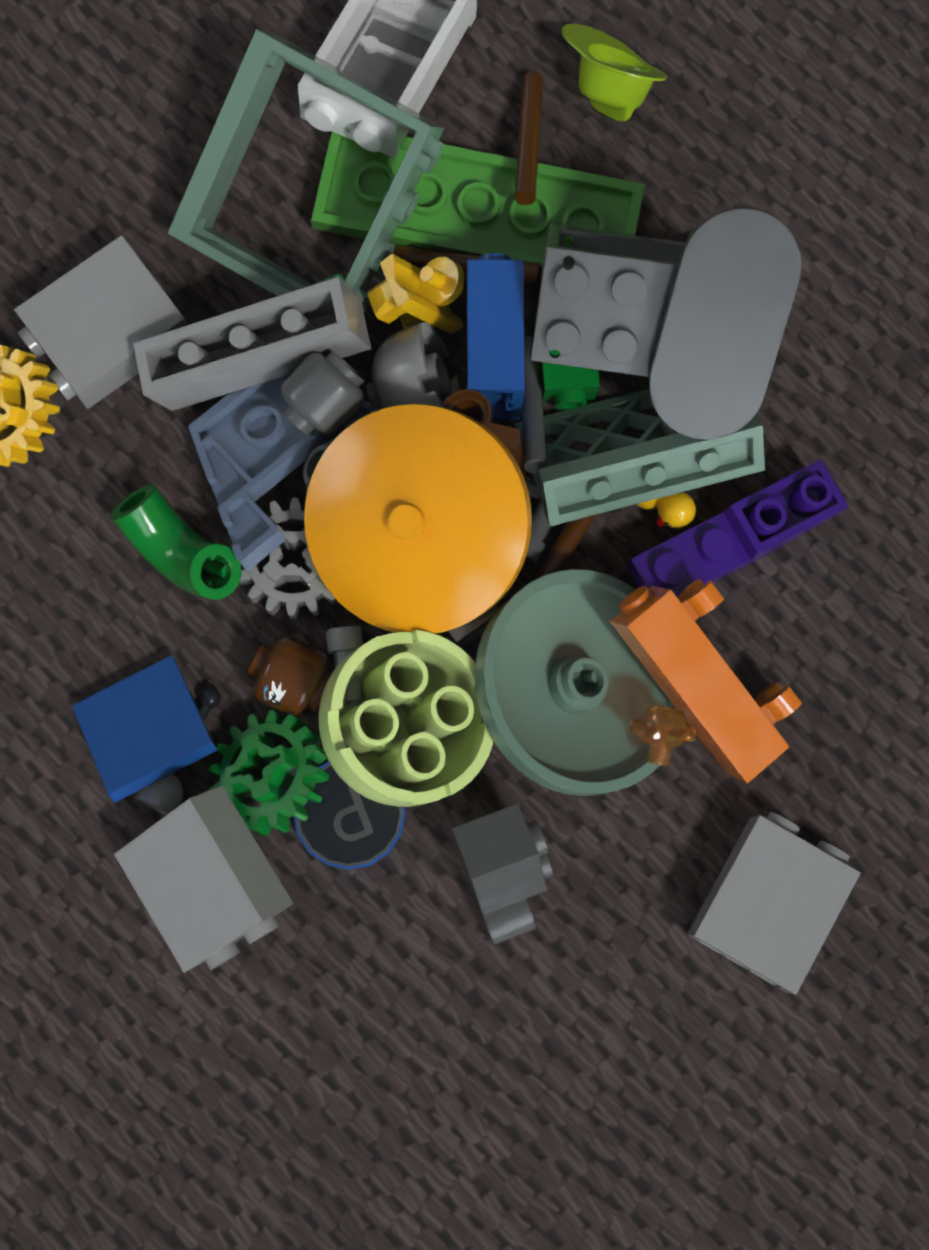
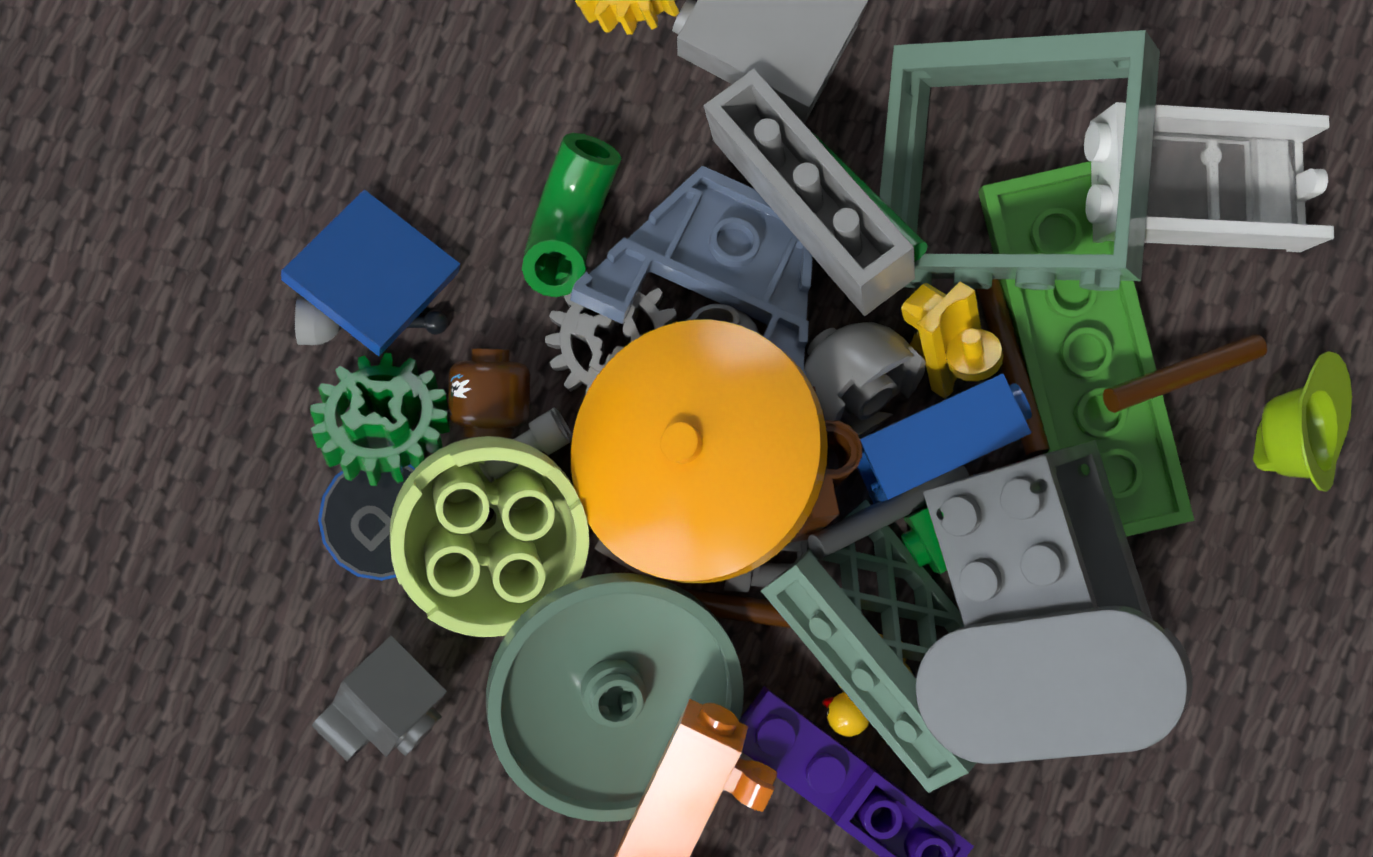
camera: 70 degrees right, 5 degrees up
(204, 880) = (240, 408): light grey brick -> none
(322, 393) = (789, 289): dark grey head -> none
(662, 730) = (599, 806): clear orange plant -> none

